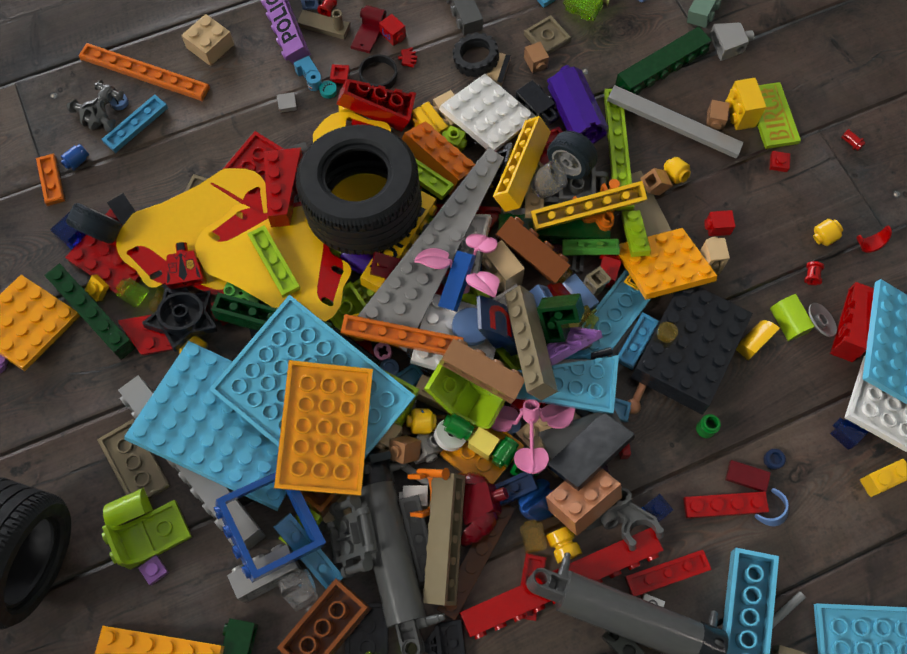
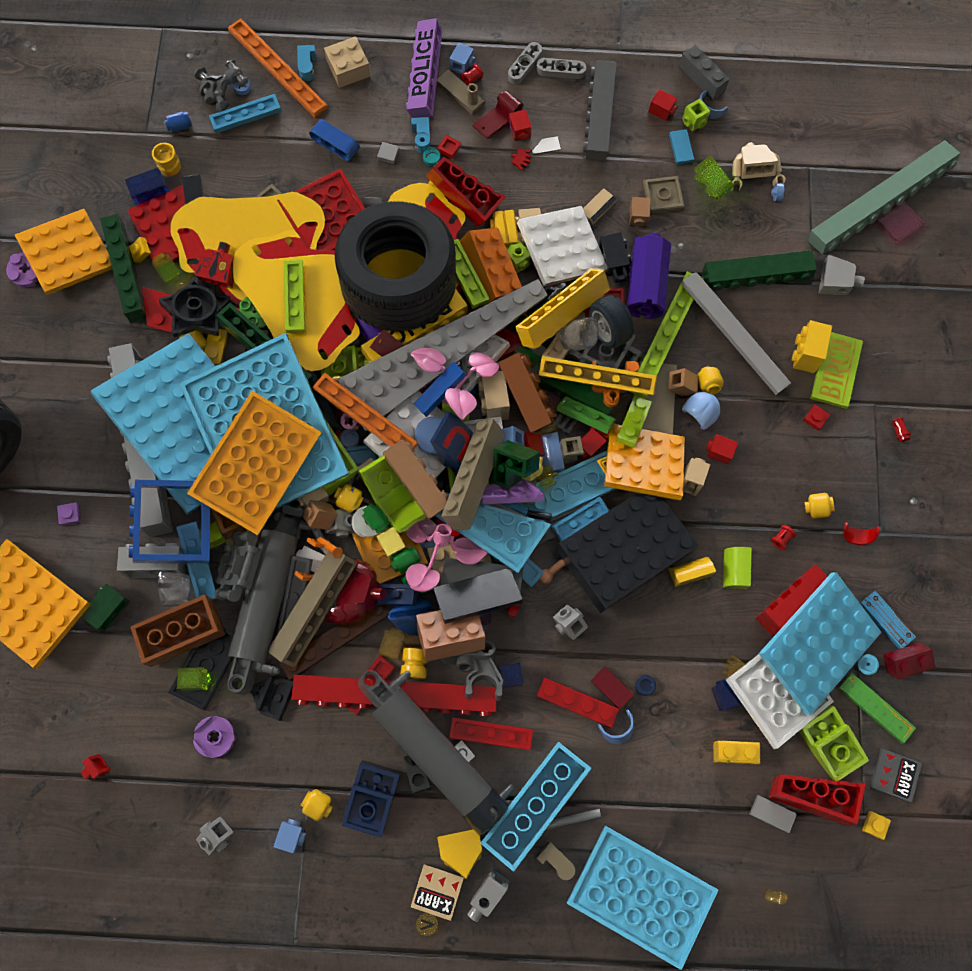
camera: 25 degrees right, 5 degrees up
(50, 179) = (149, 133): orange tile -> none
(80, 192) = (166, 159): none -> yellow wheel
(93, 223) = (160, 191): black wheel -> none
(126, 508) = (70, 452): lime brick -> none
(132, 464) = (94, 427): dark tan tile -> none
(146, 536) = (75, 483): lime bracket -> none
(167, 52) = (306, 55): none -> dark azure leg
(218, 343) = (216, 347): none -> yellow plate
(232, 111) = (334, 140): none -> blue beam
(280, 184) = (337, 214): red wedge -> none
(379, 58) = (488, 146): black tyre -> none
(424, 37) = (547, 144): none -> white sticker
(472, 41) = (581, 169): black tyre -> none
(667, 332) = (605, 524): clear yellow tile -> none
(681, 435) = (570, 622): none -> light grey brick
(686, 194) = (703, 408): none -> light blue piece
(708, 426) = (599, 626): green brick -> none
(717, 115) = (780, 345): medium nougat brick -> none
(822, 320) = (764, 583): light grey dish -> none
(840, 406) = (735, 666): none -> clear yellow piece

